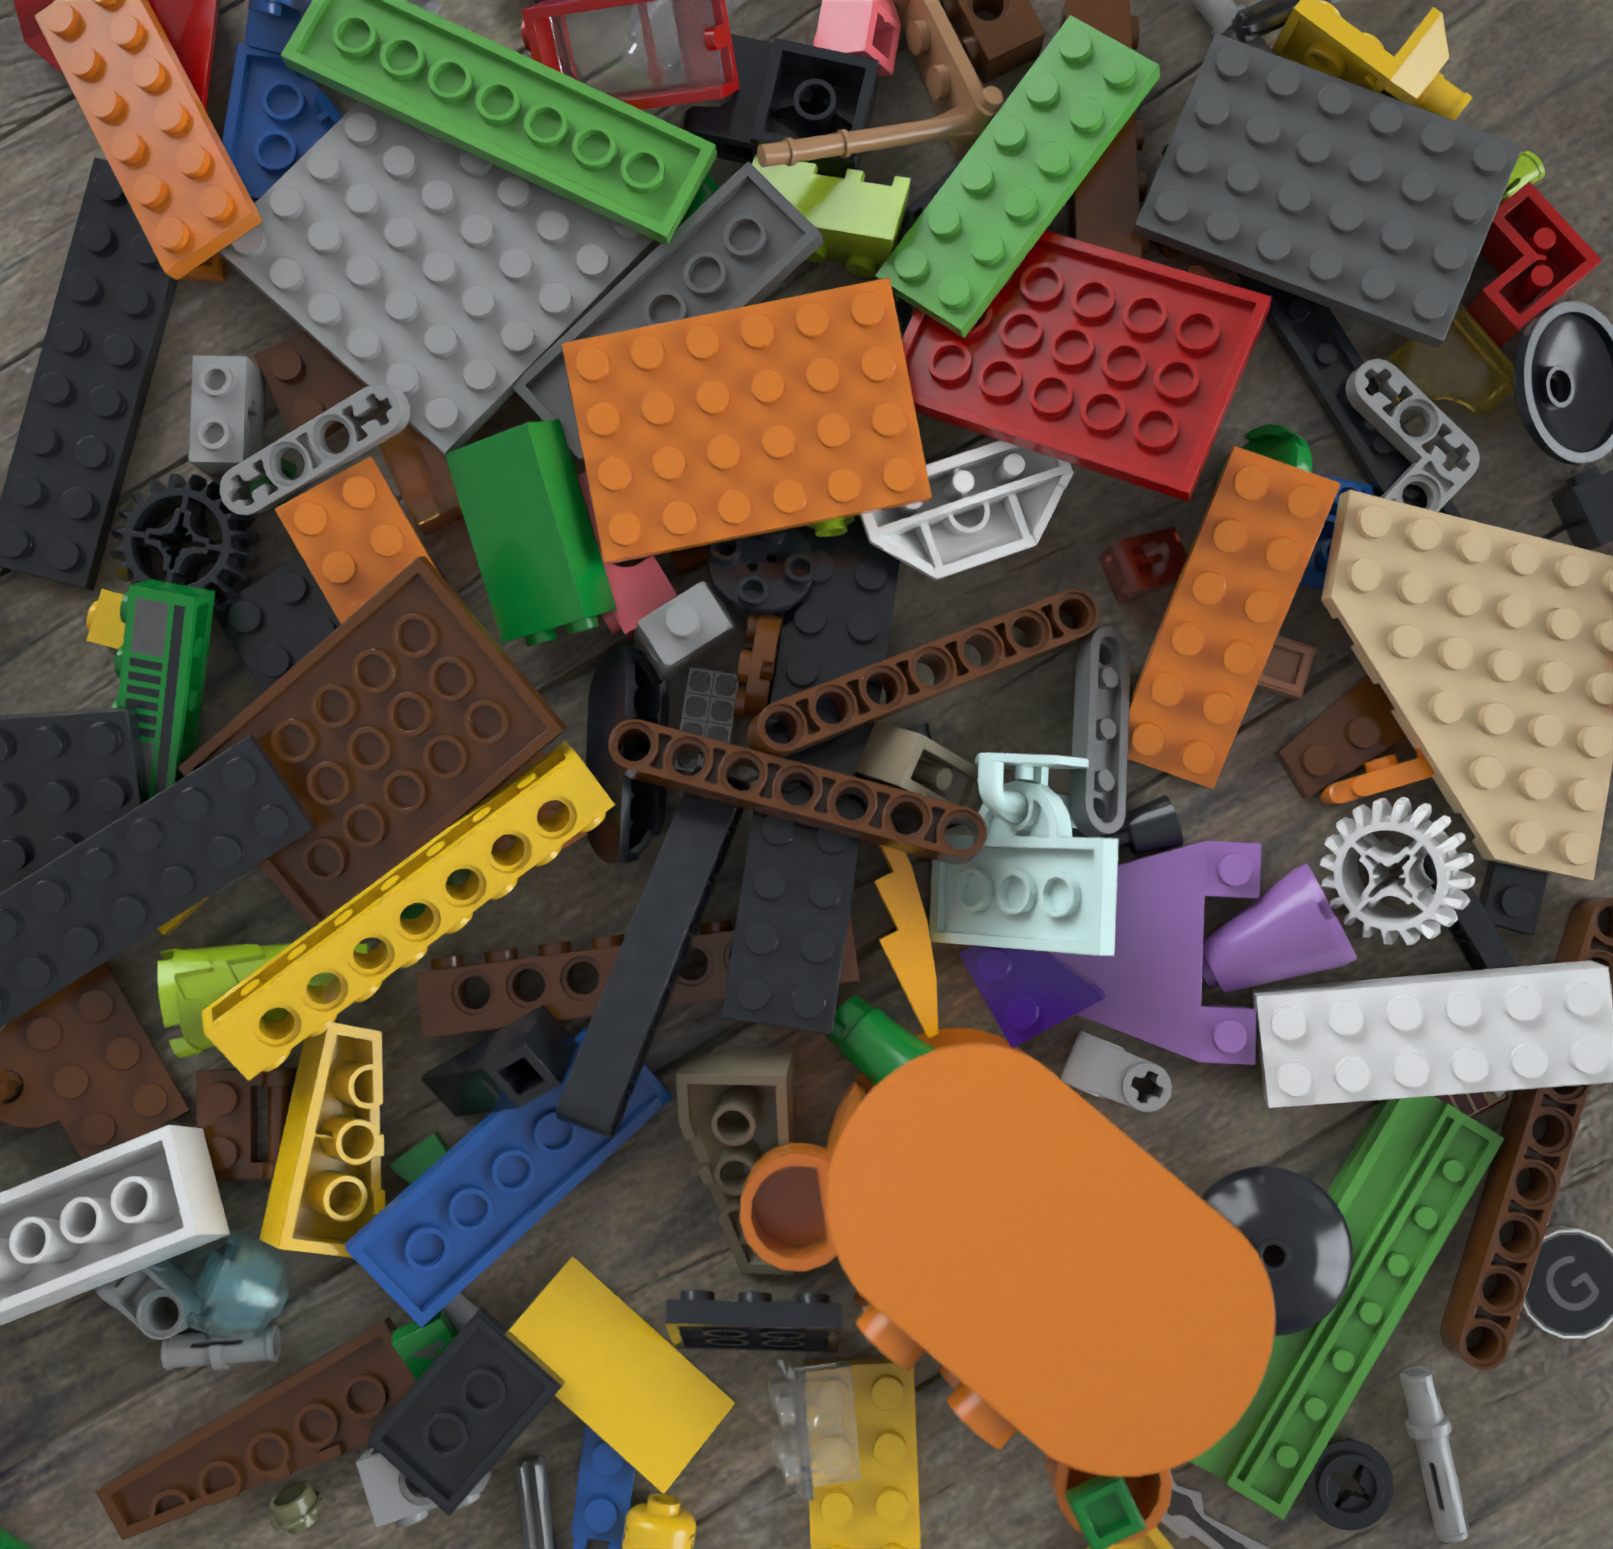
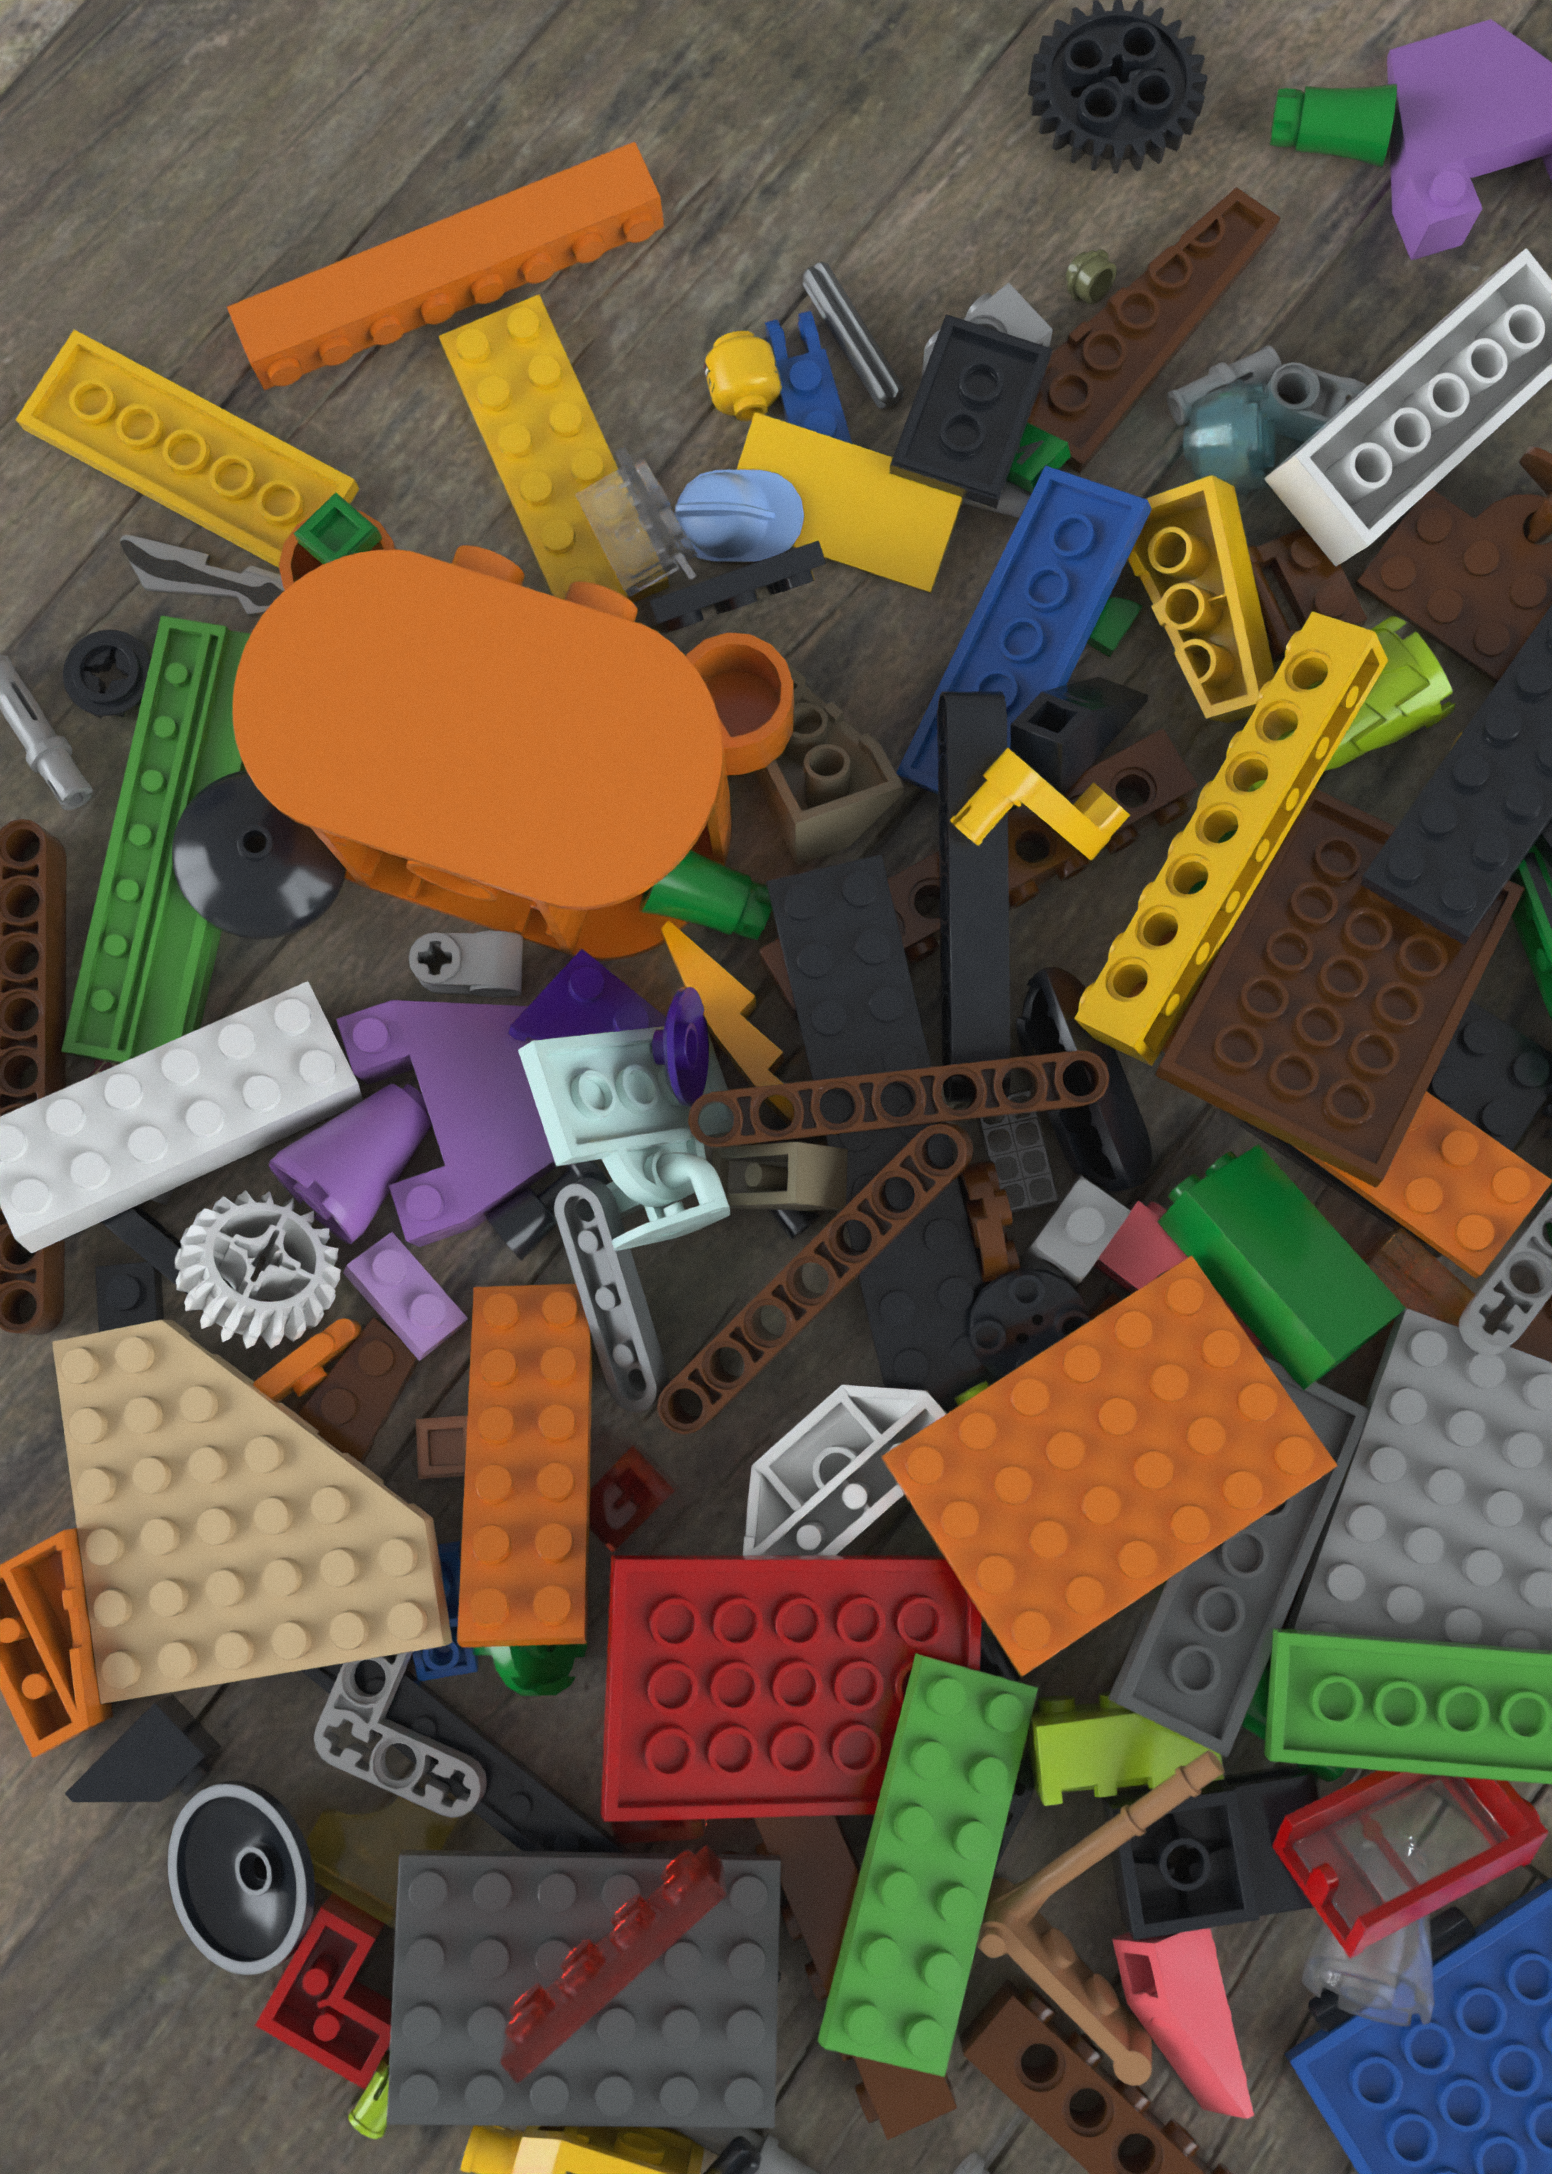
camera: 165 degrees right, 5 degrees down
(579, 1021) = (1011, 781): none -> yellow beam
(715, 1401) = (740, 515): none -> light blue piece
(960, 913) = (684, 1046): none -> dark purple dish
(1274, 804) = (405, 1295): none -> lavender plate
(1304, 185) = (603, 1969): none -> clear red plate

